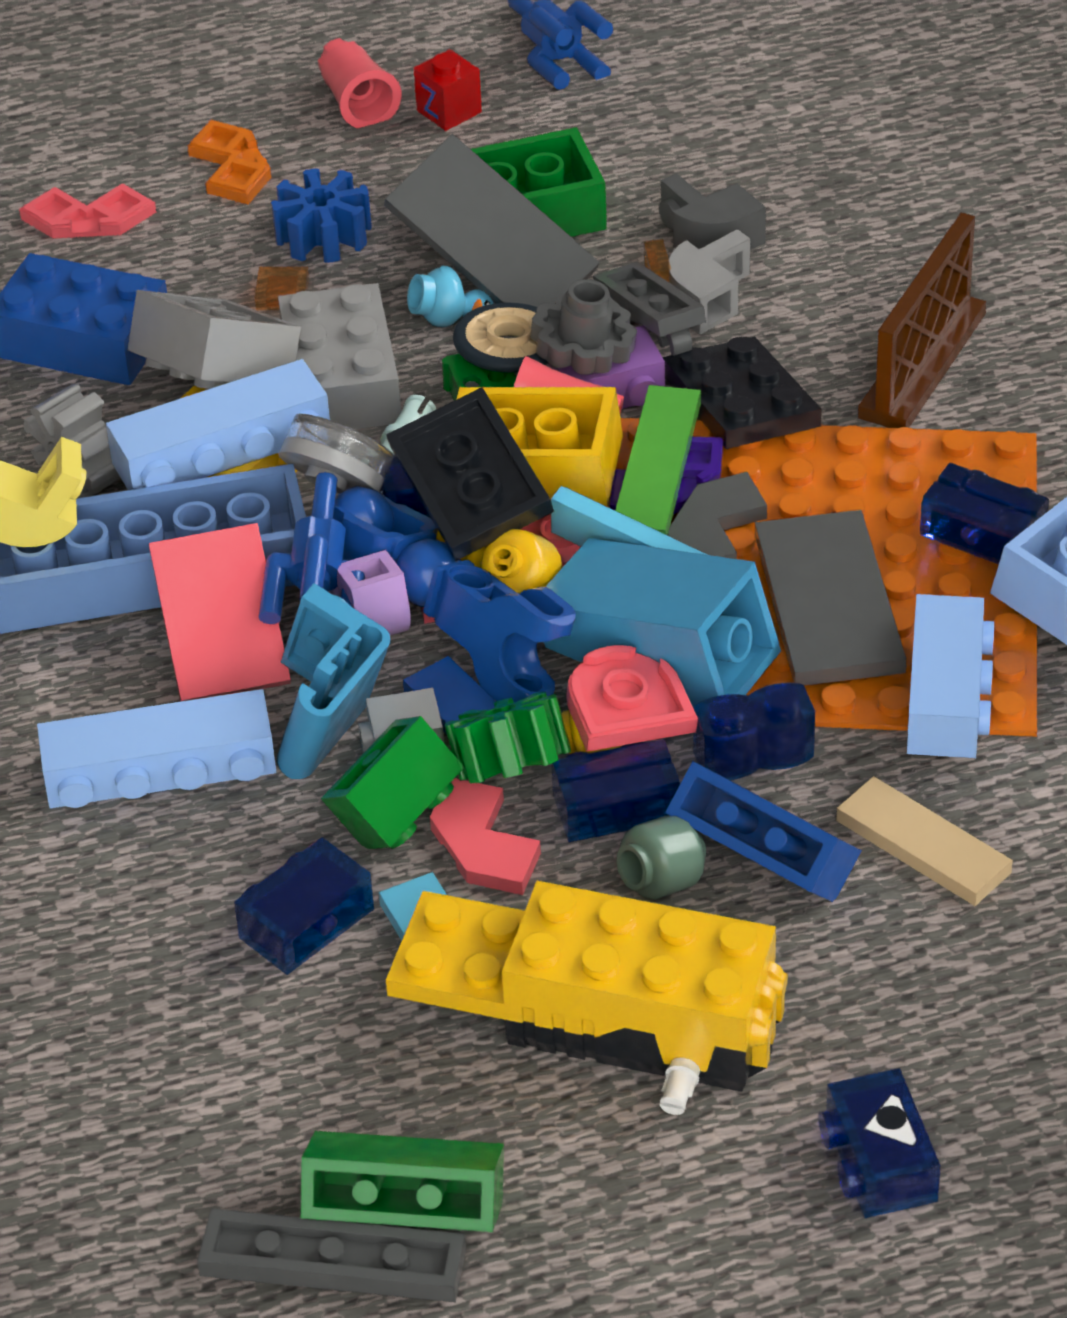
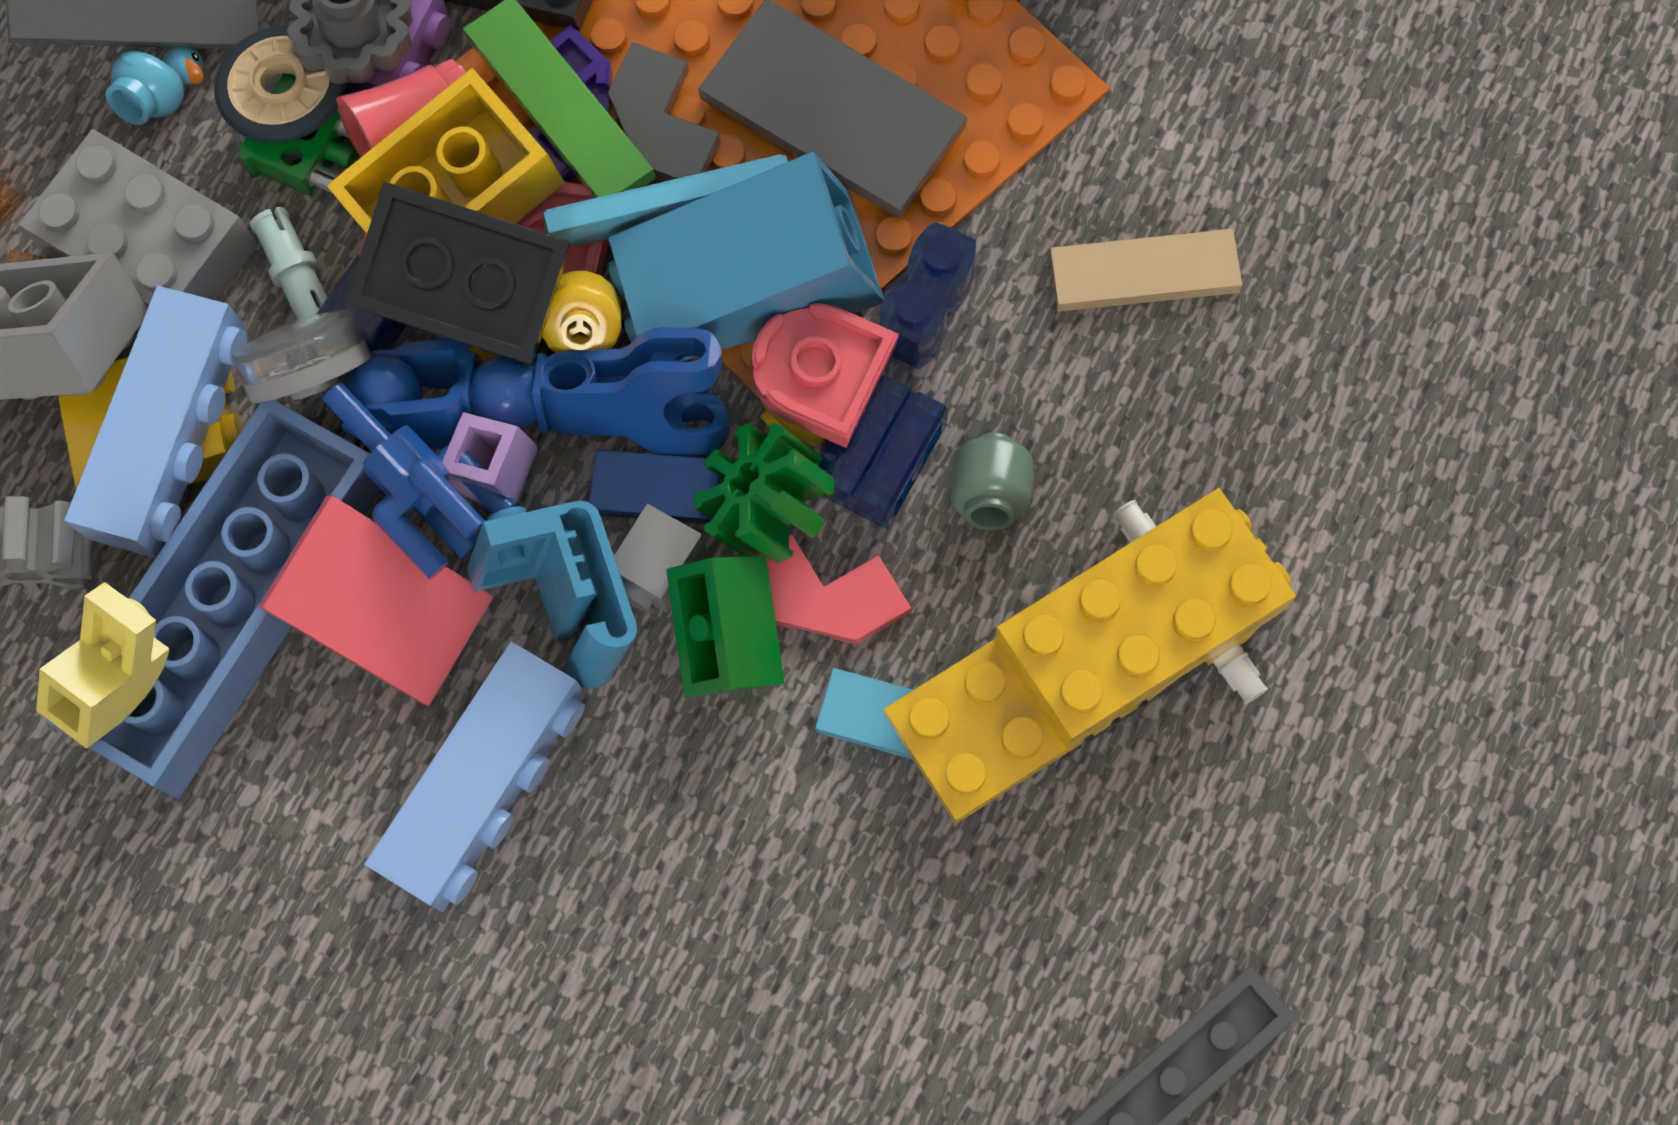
camera: 45 degrees left, 30 degrees up
(304, 905) = (777, 802): clear blue brick -> none
(402, 1181) = (1161, 971): green brick -> none
(763, 832) = (1051, 386): blue brick -> none
(880, 1143) = (1432, 578): clear blue brick -> none
(949, 676) = (1019, 104): light blue brick -> none

